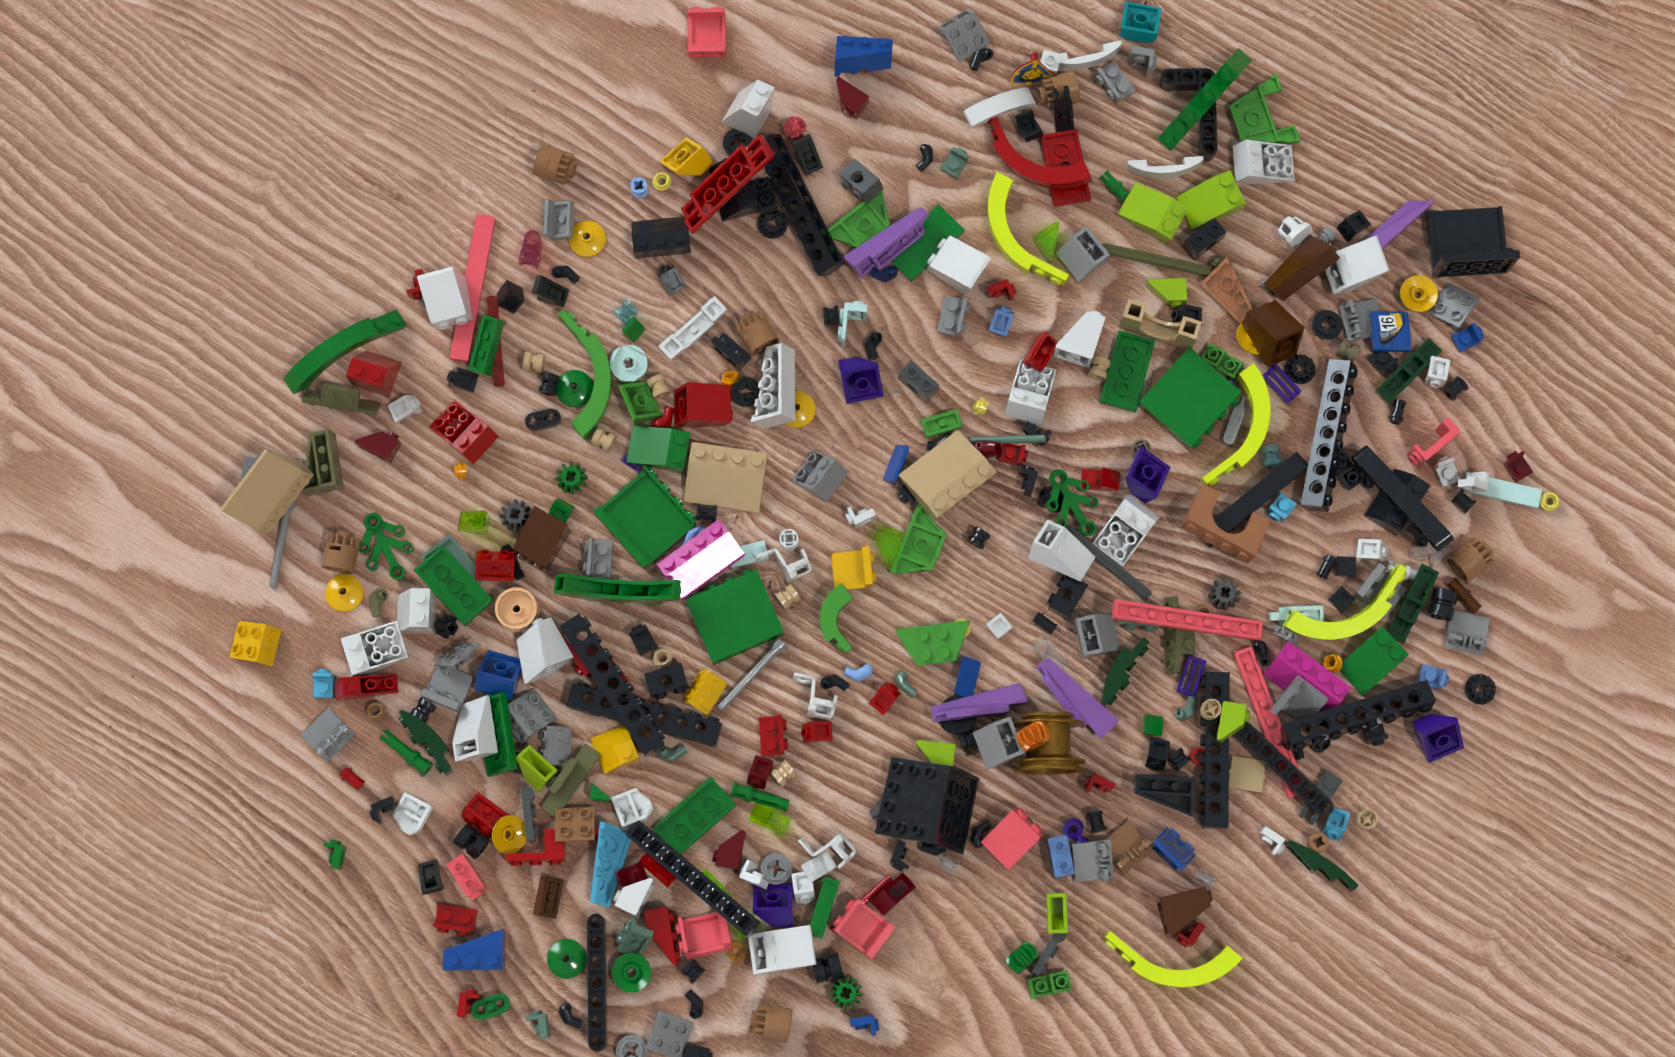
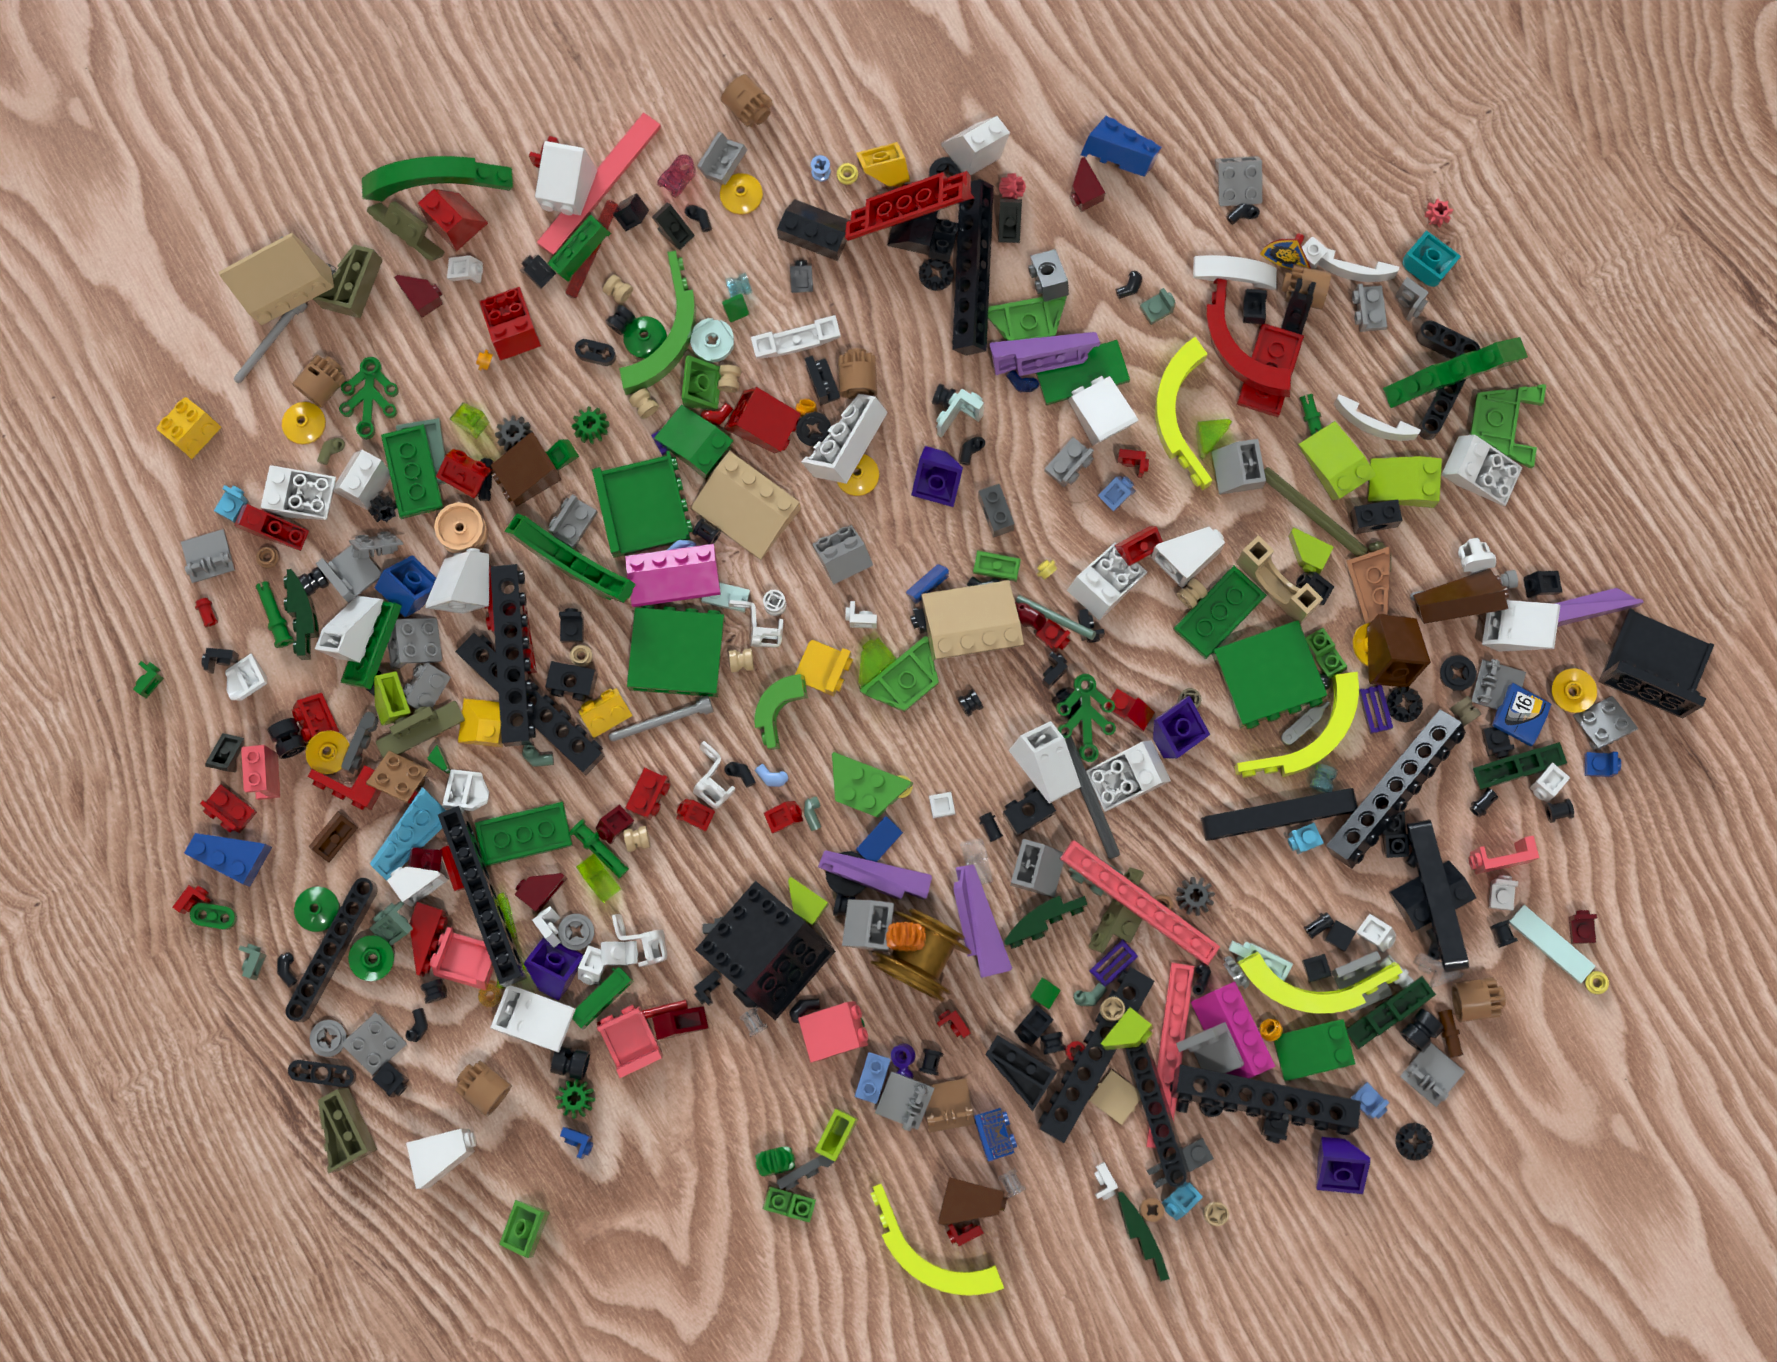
camera: 30 degrees right, 0 degrees up
(706, 32) = (976, 47): coral panel -> none
(1201, 523) = (1209, 810): nougat arch -> none
(1475, 482) = (1526, 920): white bracket -> none

